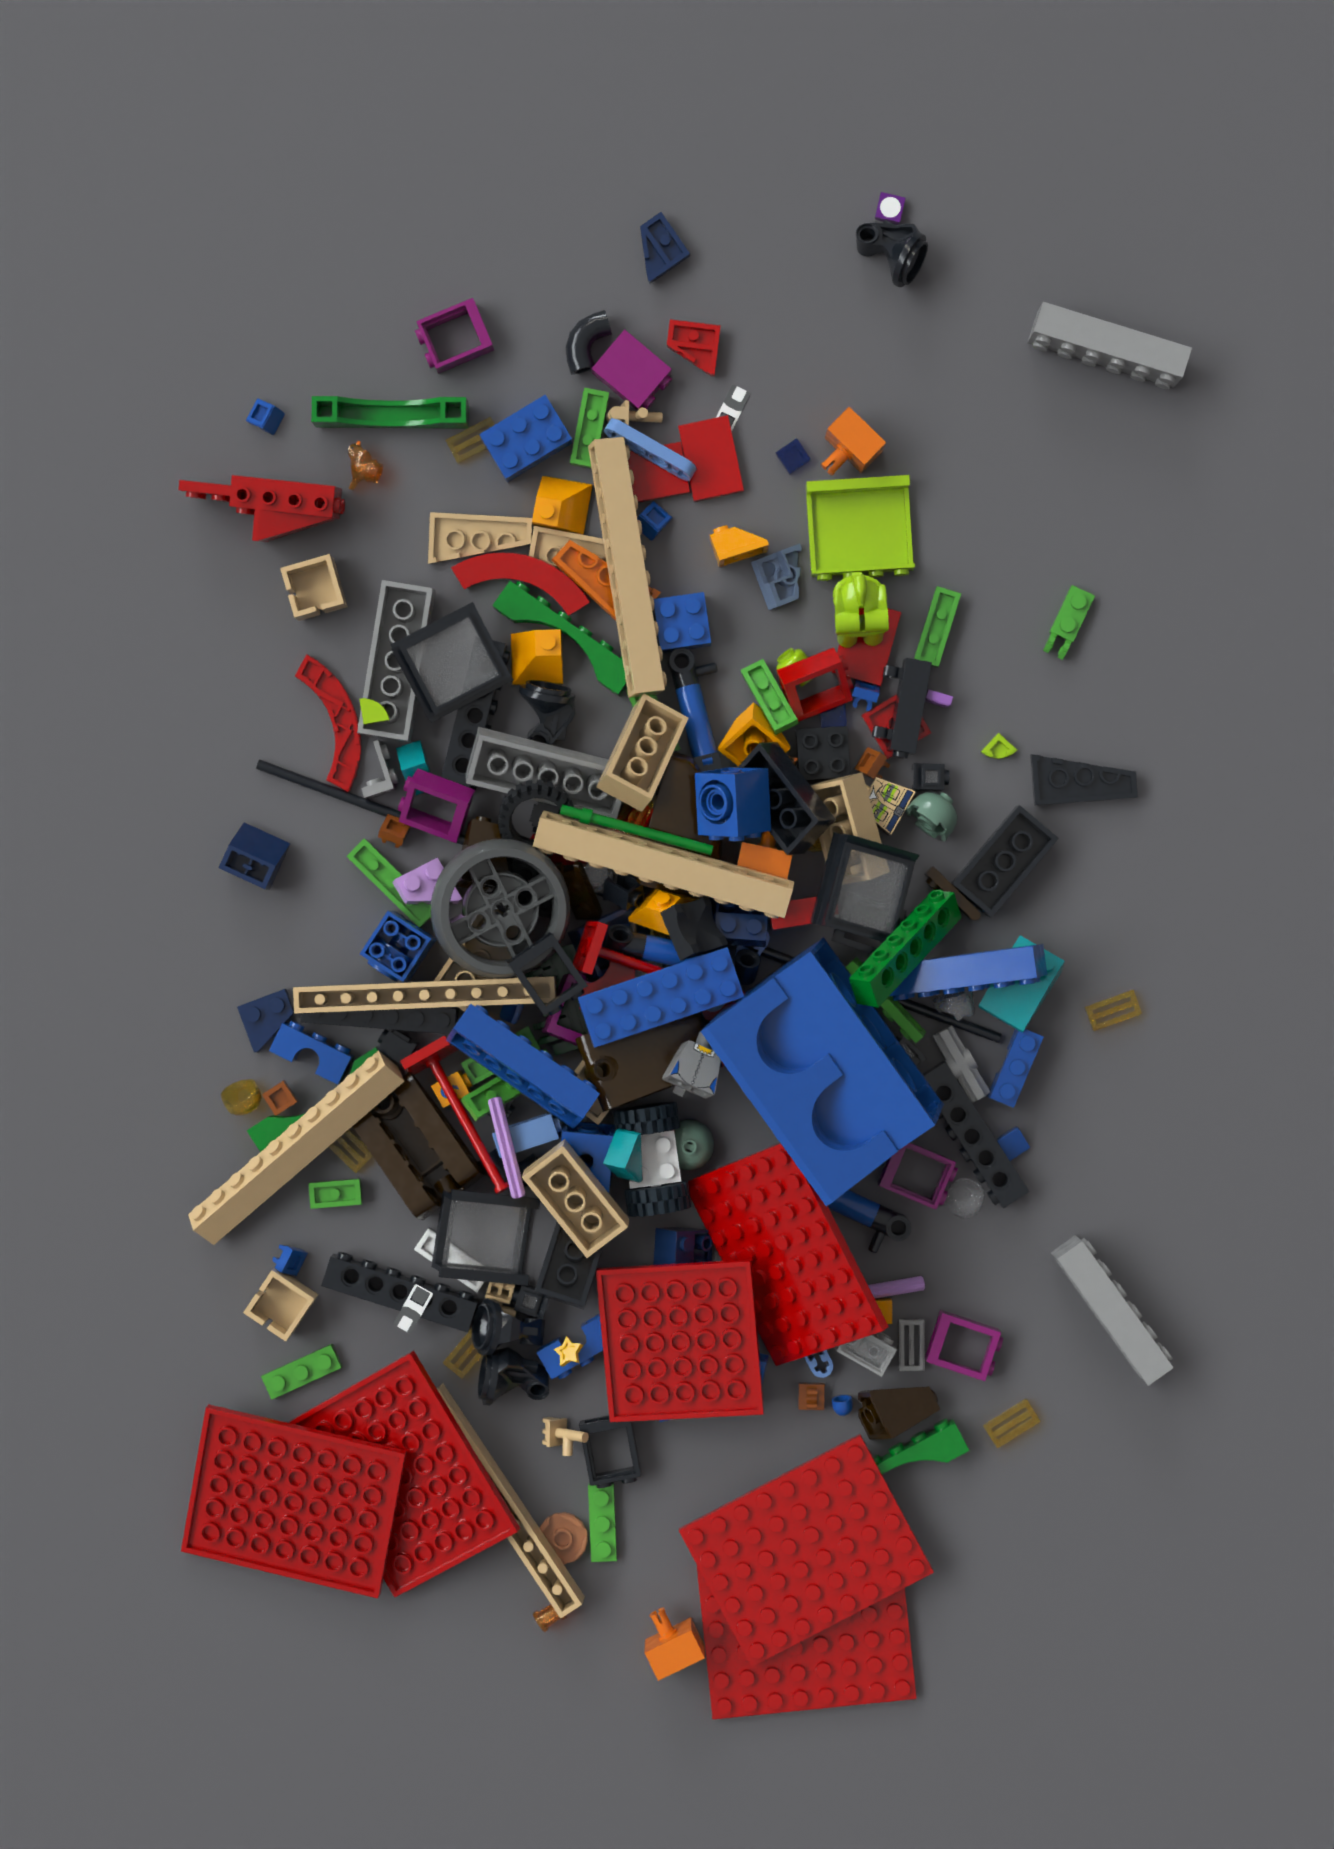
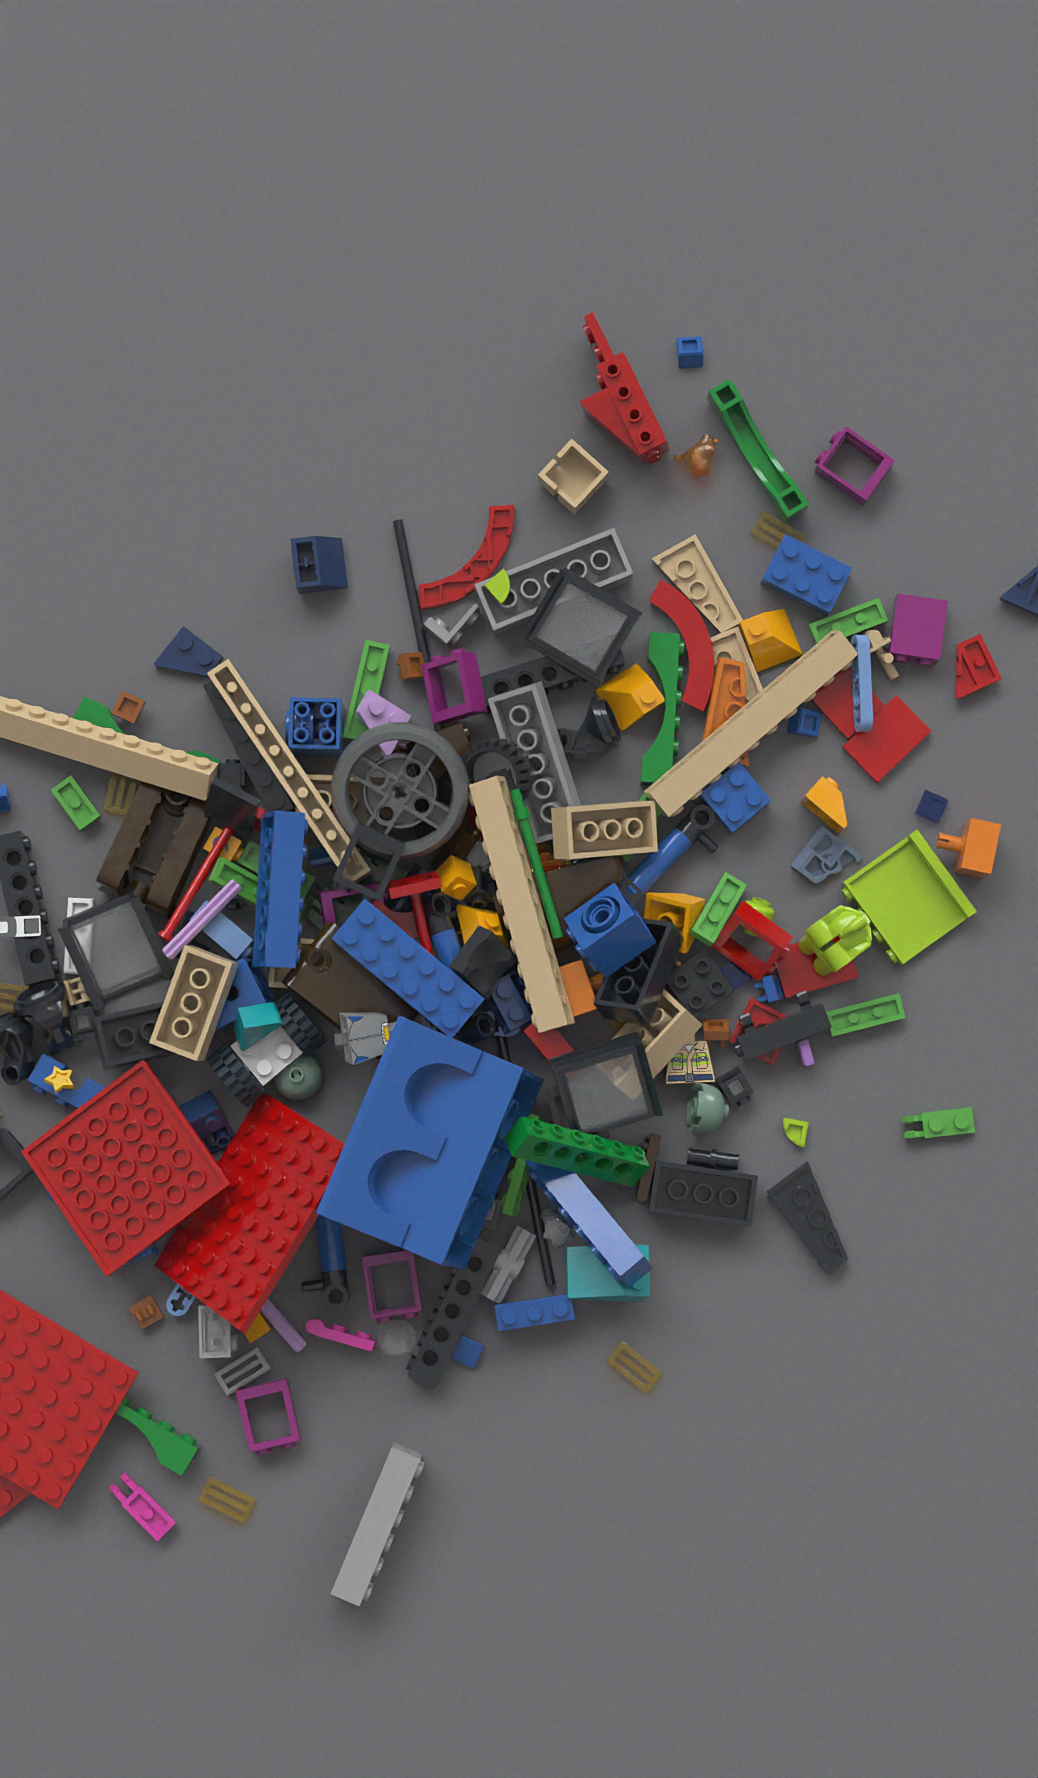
camera: 60 degrees right, 5 degrees down
(241, 1097) = (109, 675): clear yellow hair -> none
(332, 1059) = (183, 688): blue arch -> none
(412, 757) = (482, 644): teal slope -> none
(424, 1062) = (232, 806): none -> black tile
(581, 340) = (917, 571): black cylinder -> none
(604, 905) = (456, 877): none -> light orange brick
(734, 404) = (943, 731): sticker -> none
(842, 1404) = (155, 1343): blue hinge -> none
(893, 1411) = (178, 1390): dark brown slope -> none
(931, 1244) = (339, 1334): none -> dark pink hinge
(975, 1498) = (144, 1508): none -> dark pink hinge
(979, 833) = (713, 1158): none -> black pin

